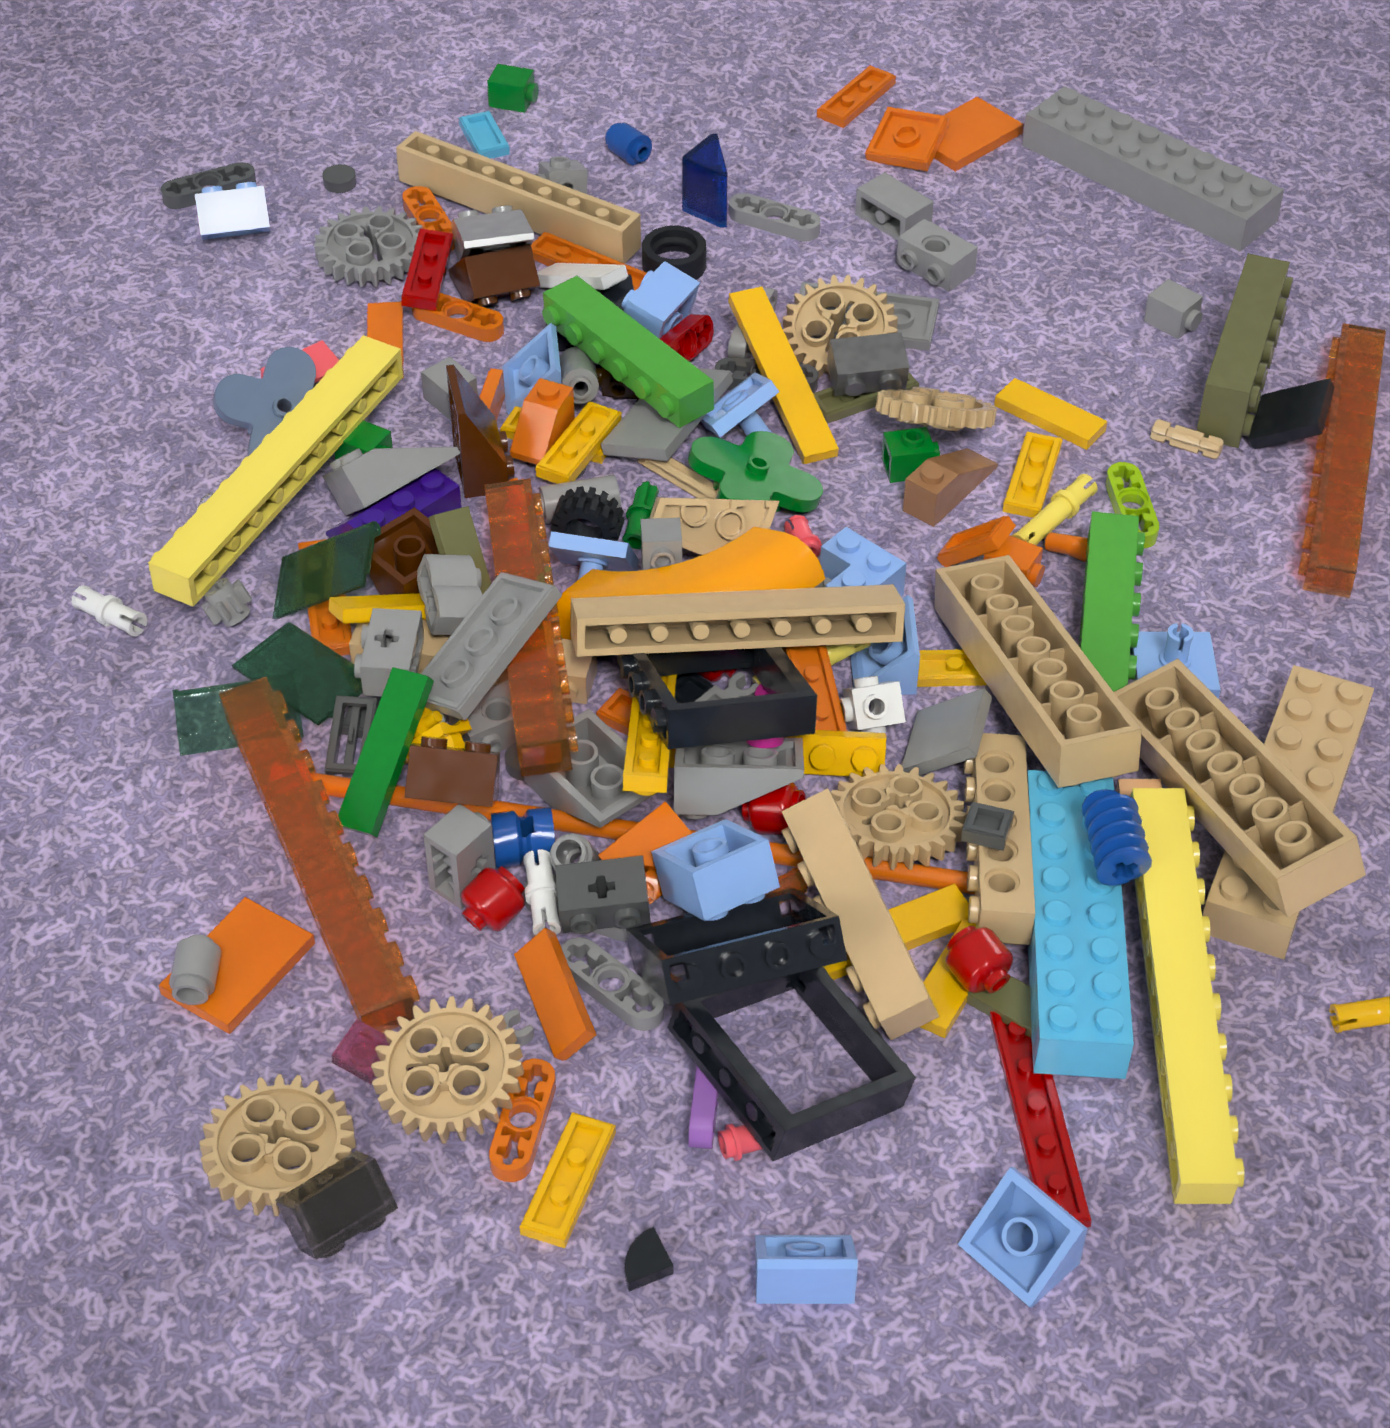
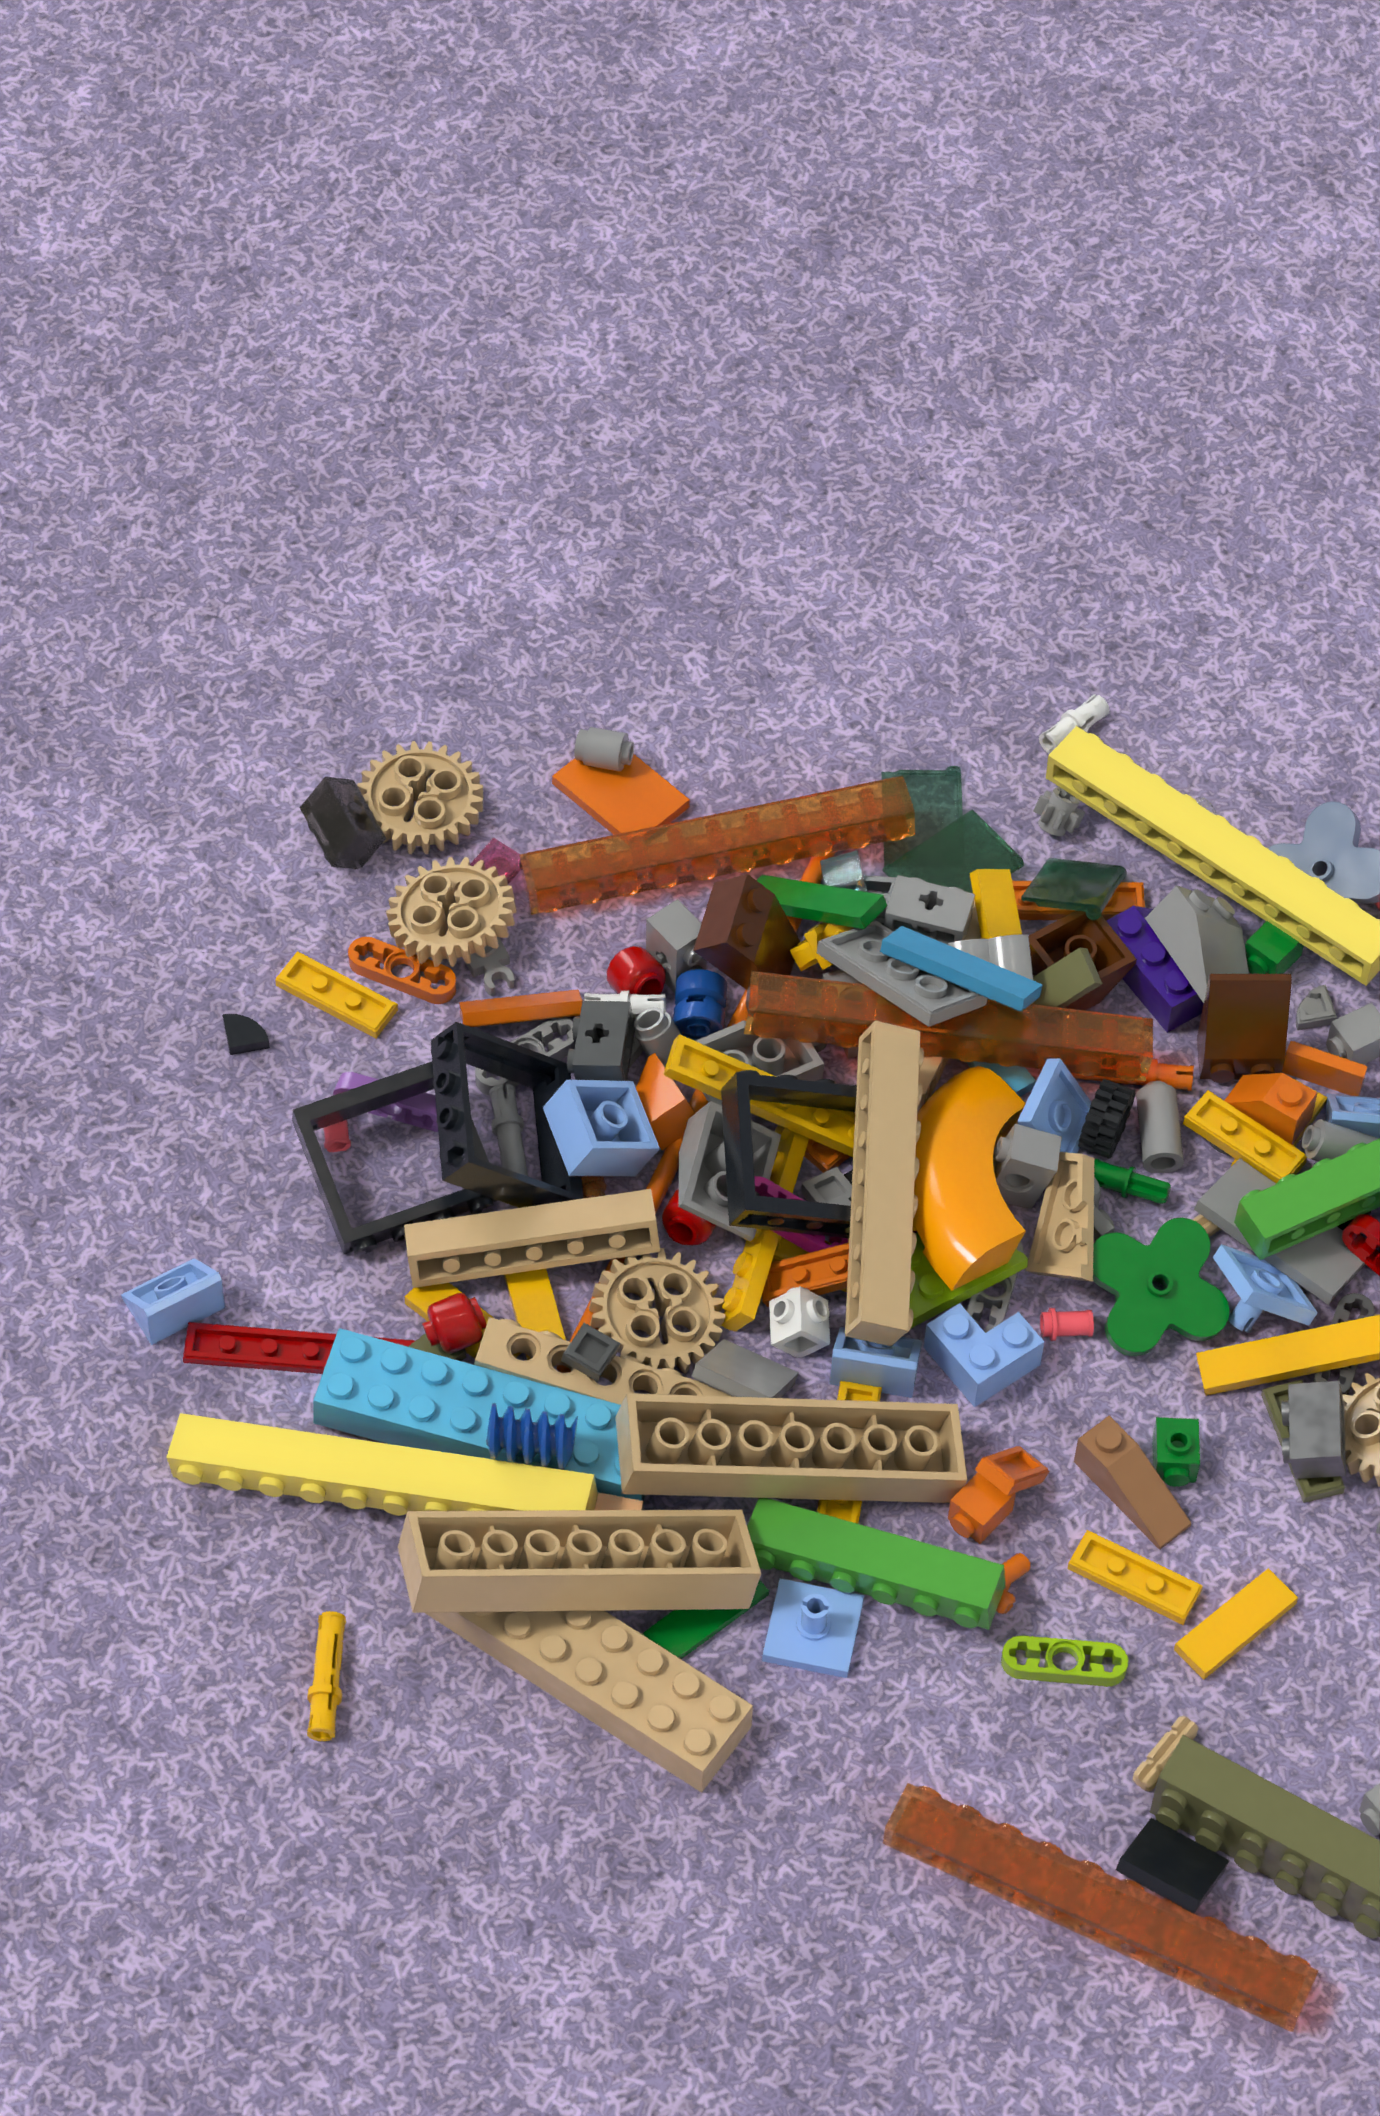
camera: 100 degrees right, 10 degrees up
(334, 745) = (844, 871): none -> clear light blue tile
(418, 423) = (1315, 1009): none -> light grey tile
(477, 593) = (961, 968): none -> dark azure tile
(805, 1269) = (201, 1135): light blue slope -> none
(936, 408) = (1228, 1479): tan gear -> none
(1063, 505) = (1071, 1587): light yellow pin -> none

